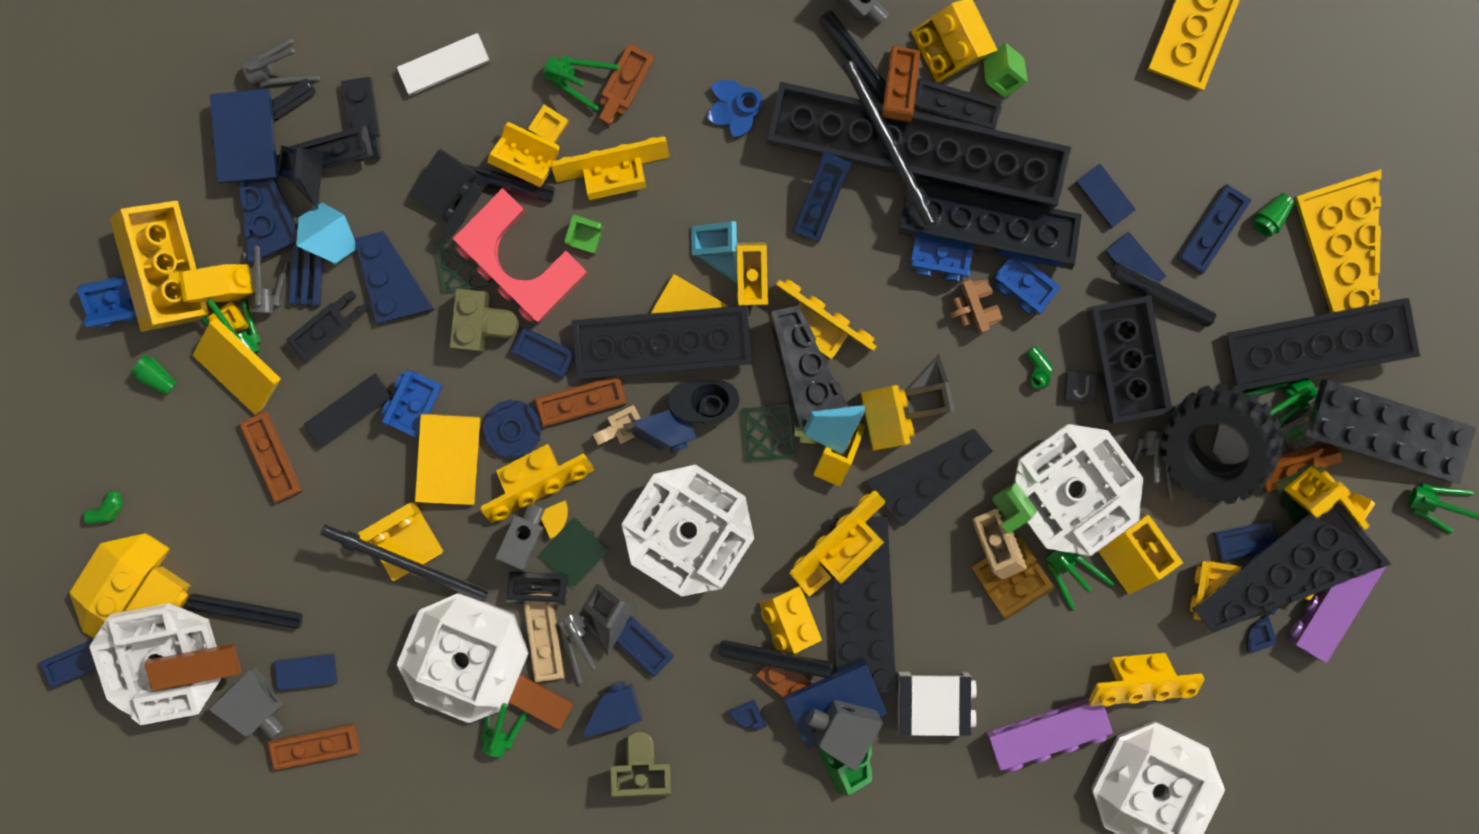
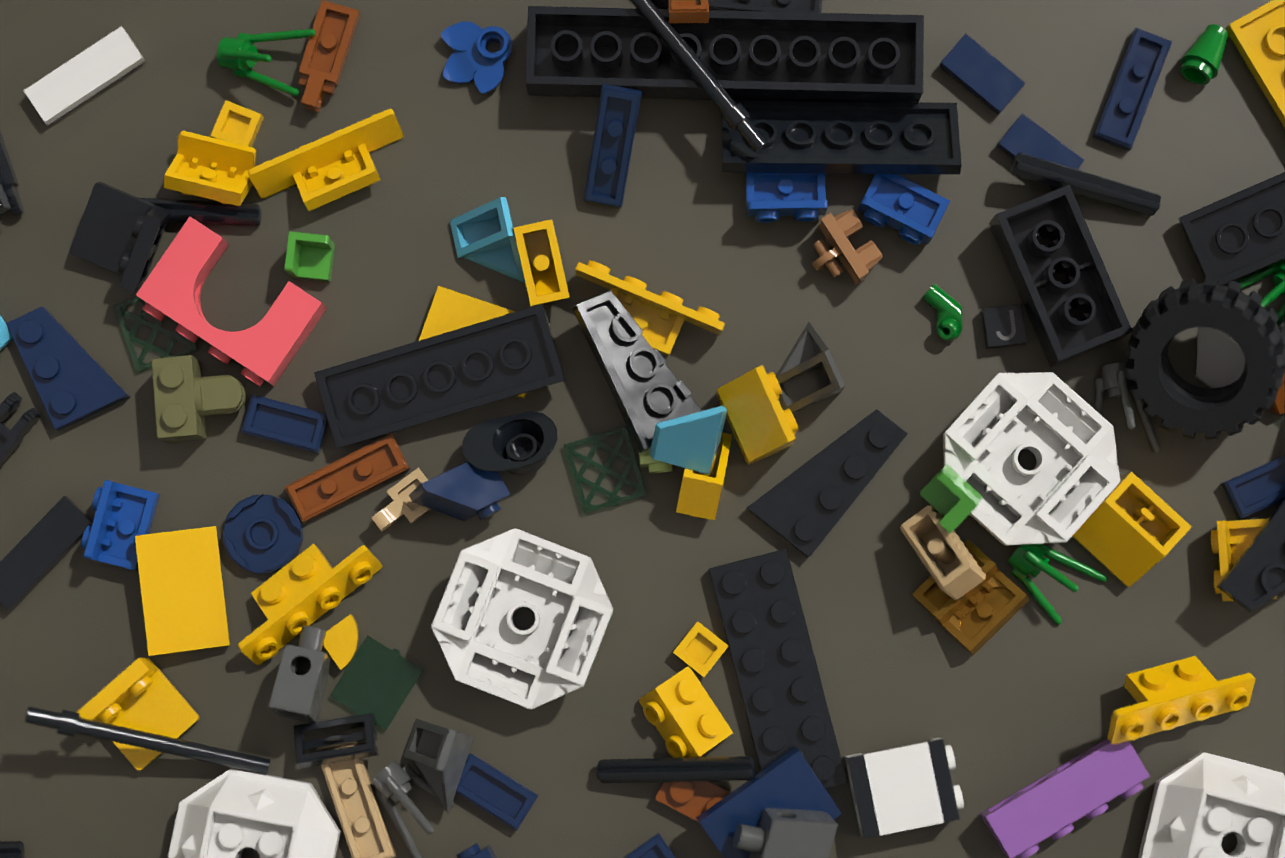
camera: 10 degrees left, 5 degrees down
(846, 545) = (738, 594): yellow bracket -> none

